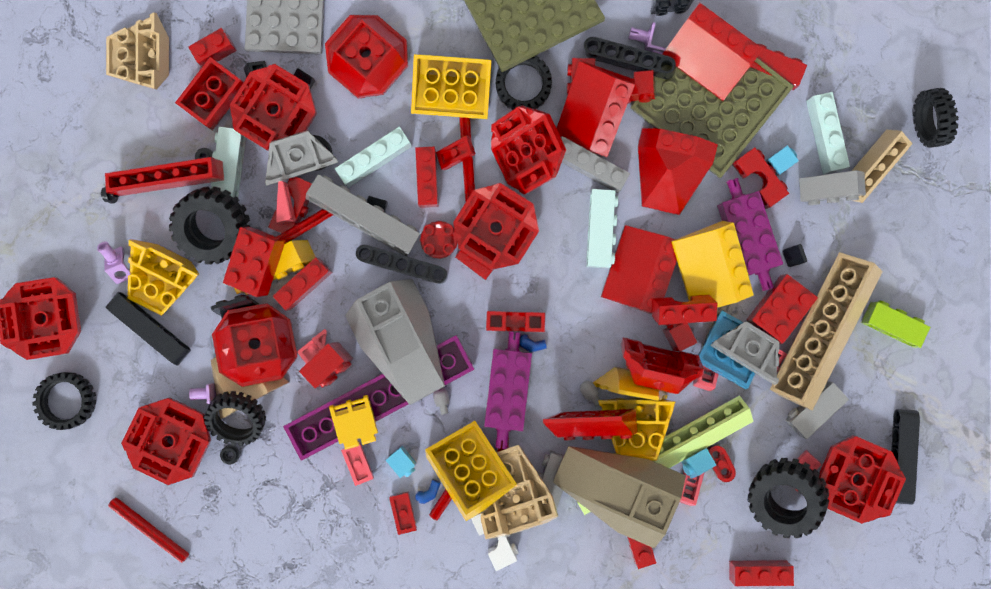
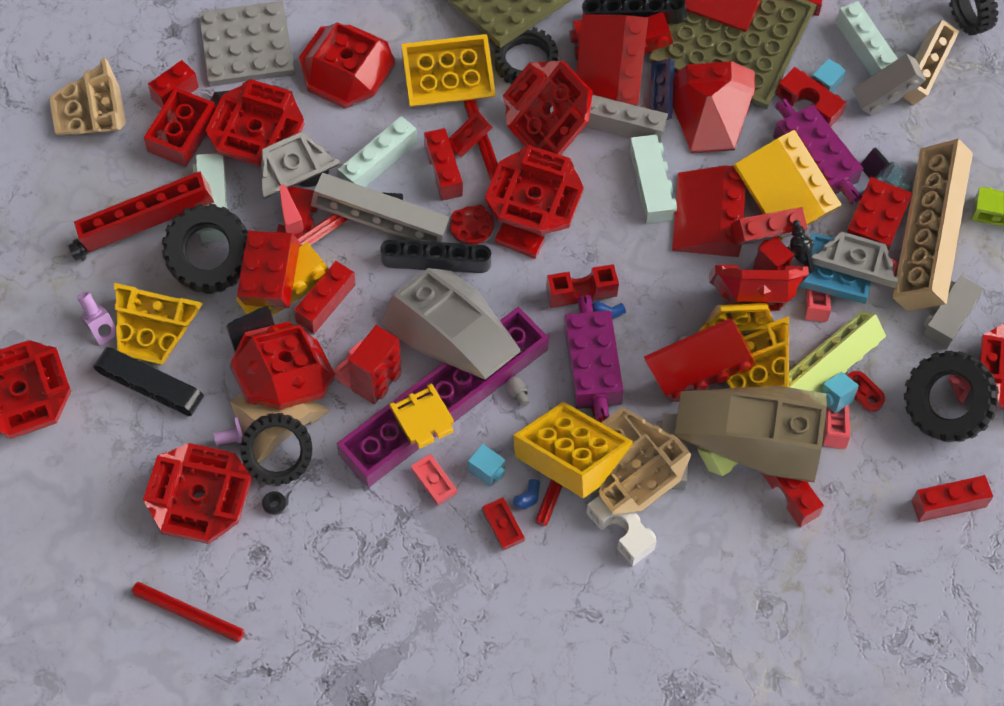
camera: 20 degrees left, 25 degrees down
(43, 409) = (44, 459): black tyre -> none
(632, 142) = (662, 86): none -> dark blue plate
(706, 334) = (801, 246): none -> black piece
(807, 275) = (895, 176): none -> clear light blue hair

